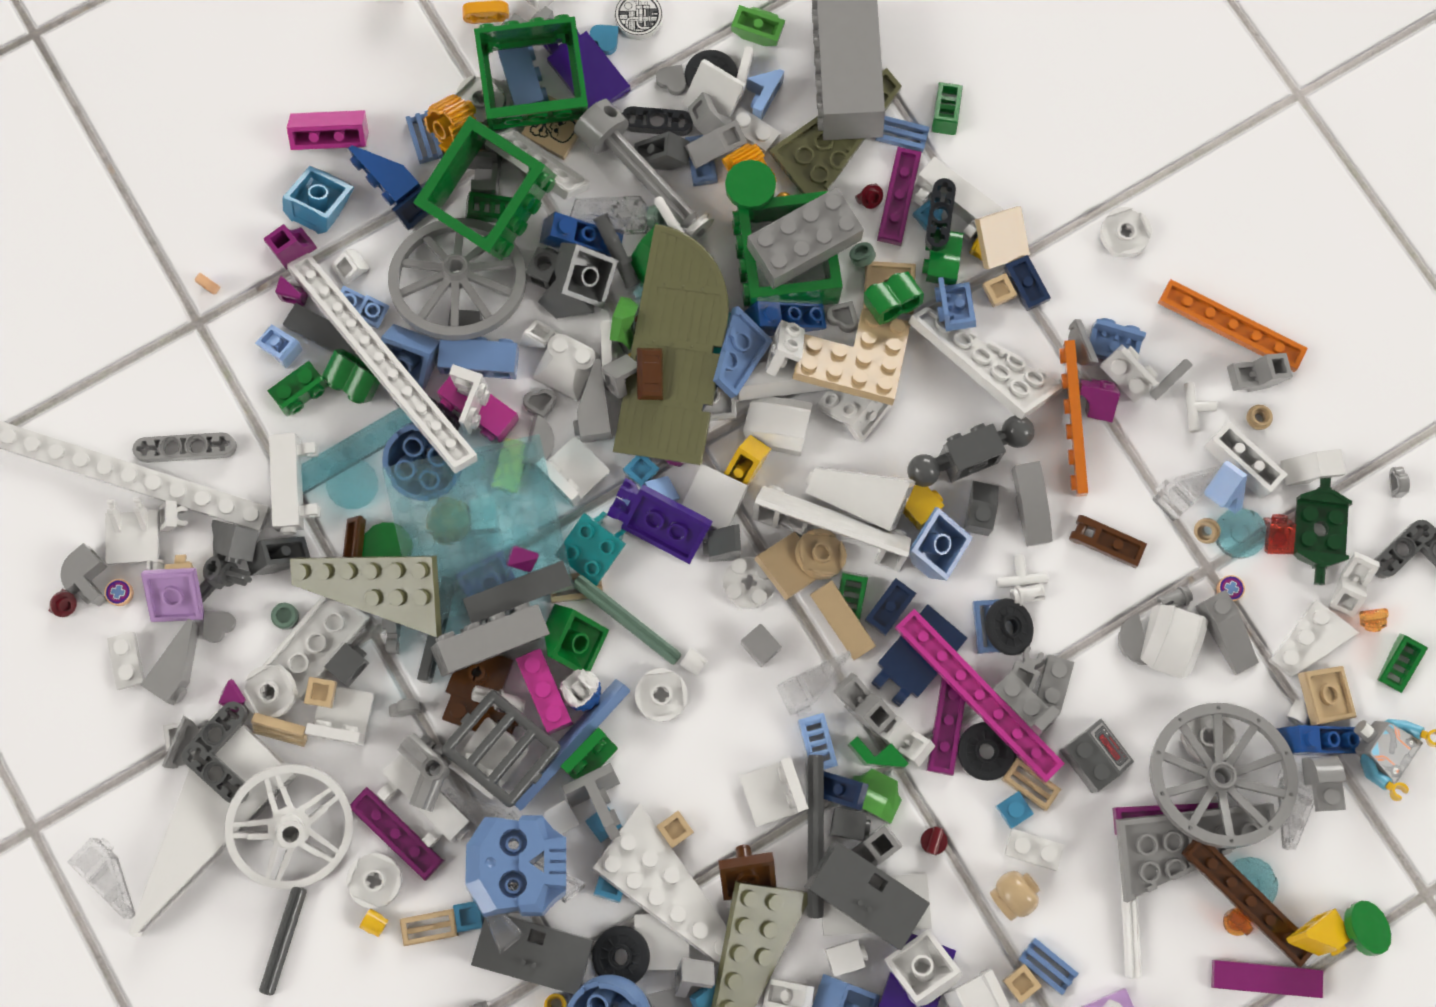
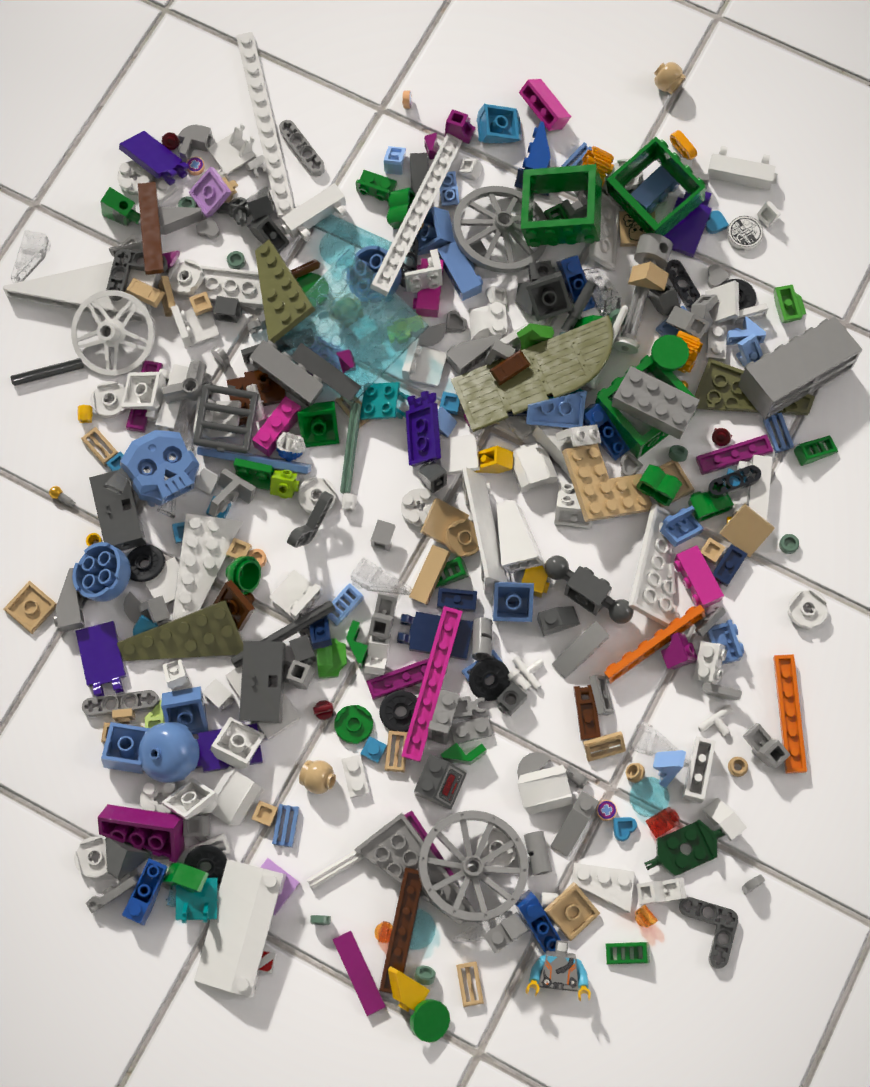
camera: 65 degrees right, 5 degrees down
(73, 637) = (154, 157): none -> dark purple tile
(75, 663) = (129, 169): none -> white plate
(108, 722) = (119, 208): none -> green torso
(166, 632) = (187, 202): none -> sand green tile
(178, 697) = (150, 228): none -> reddish brown tile
(261, 755) = (145, 292): none -> tan tile
(395, 830) = (144, 391): none -> white slope
(625, 725) = (284, 484): none -> lime brick
(634, 150) = (648, 276): none -> tan slope
(696, 813) = (259, 555): none -> light nougat tile
(699, 722) = (305, 534): none -> dark grey beam
(712, 841) = (245, 573): none -> green piece
(794, 103) = (749, 350): none -> light blue slope
(958, 606) = (482, 639): none -> light grey pin
(970, 815) = (353, 724): none -> green tile
(1023, 324) = (698, 577): none -> dark pink brick
(1038, 204) = (789, 543): none -> sand green tile
(1052, 607) = (514, 691): none -> dark grey brick
(1075, 718) = (456, 755): none -> green slope
(1098, 513) = (601, 695): none -> light grey tile
(1158, 546) = (604, 743): none -> tan tile
(1184, 989) = (320, 920): none -> sand green tile
(1240, 693) = (538, 853): none -> light grey pin
(1260, 582) = (623, 827): none -> dark azure tile
(1311, 904) = (424, 975): none -> sand green tile
(1322, 851) = (466, 966): none -> tan tile

